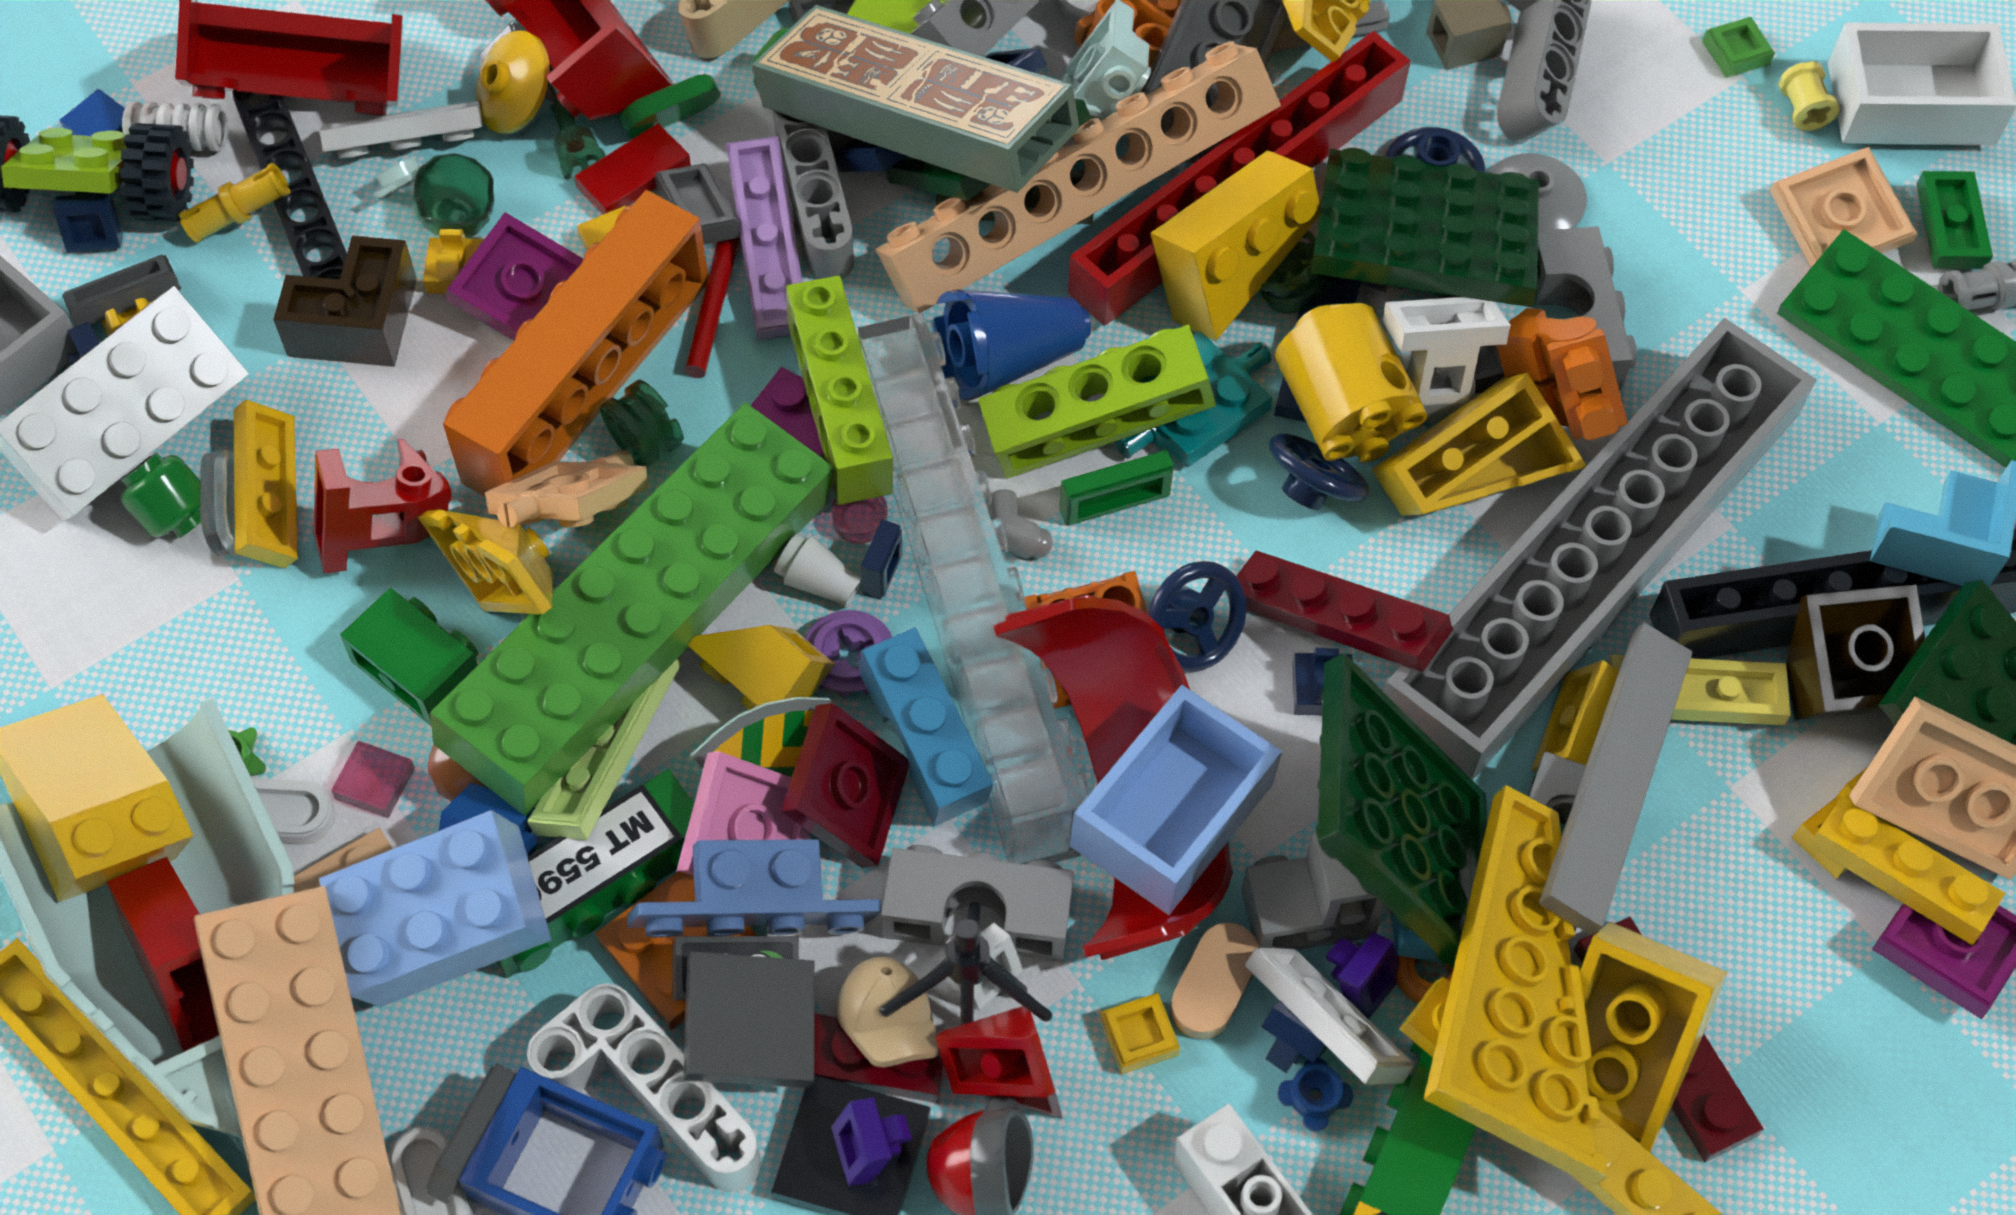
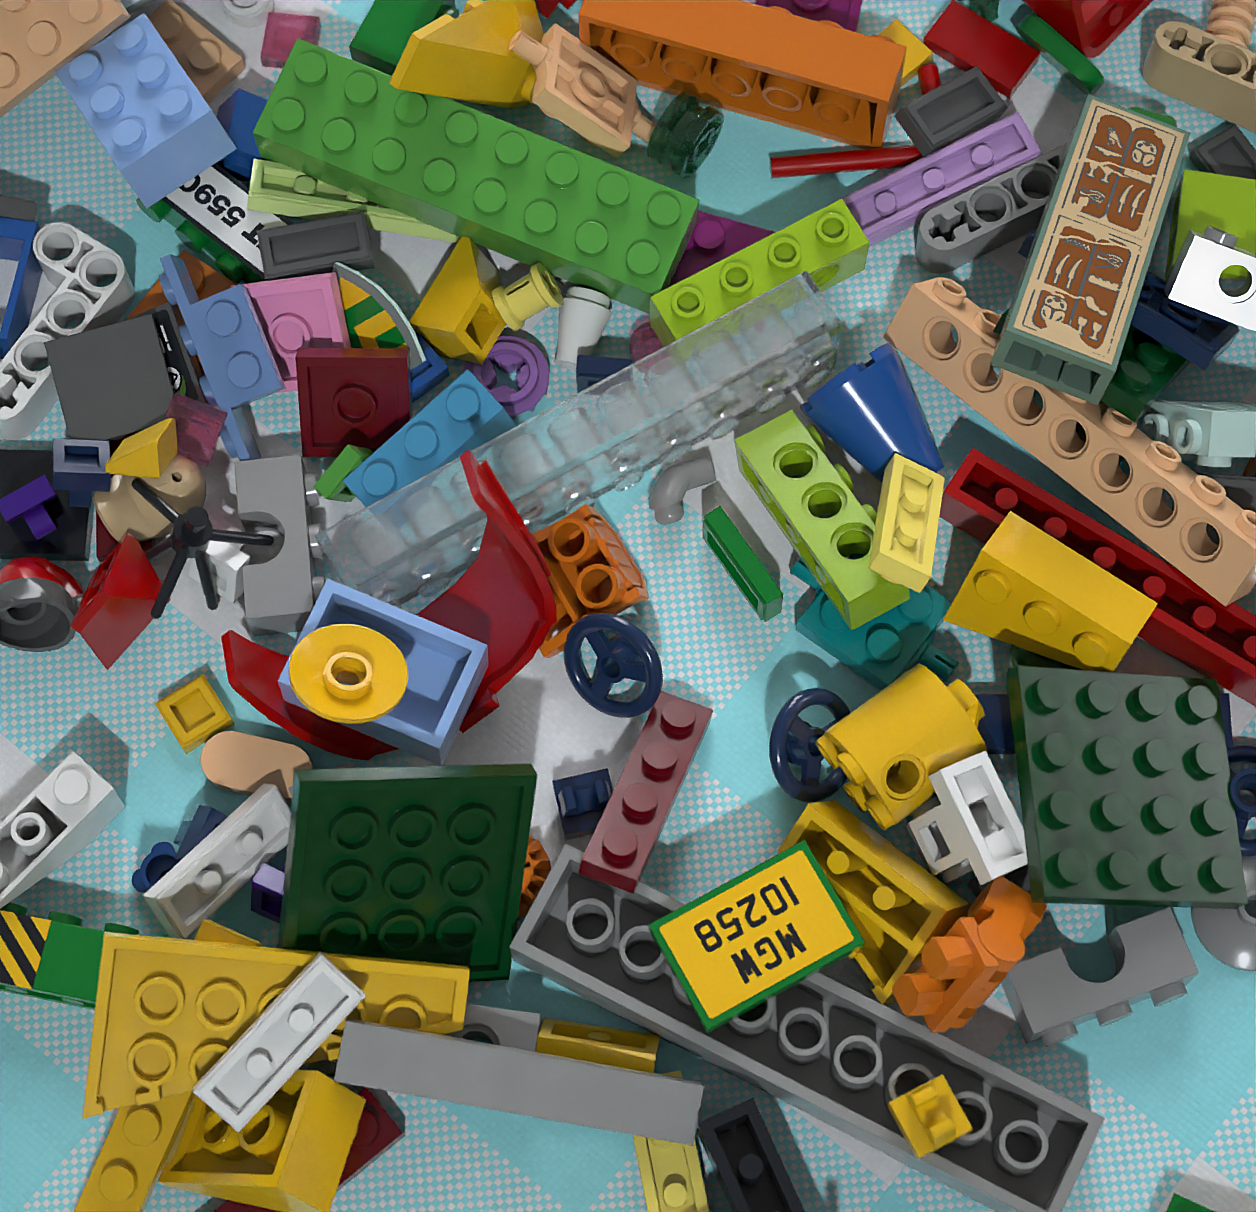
camera: 80 degrees right, 10 degrees up
(660, 780) = (315, 247): none -> dark grey tile
(778, 597) = (527, 296): none -> light yellow bush
(834, 946) = (196, 428): none -> clear pink tile
(845, 1070) = (80, 469): none -> dark blue tile
(853, 990) = (146, 452): none -> yellow slope
(921, 814) = (331, 482): none -> bright green tile
(1142, 313) = (907, 523): none -> light yellow plate
(1194, 803) = (348, 656): none -> yellow dish
(1515, 537) = (756, 936): none -> yellow tile
(1557, 966) = (278, 1042): none -> white tile
(1709, 441) = (929, 1117): none -> yellow tile

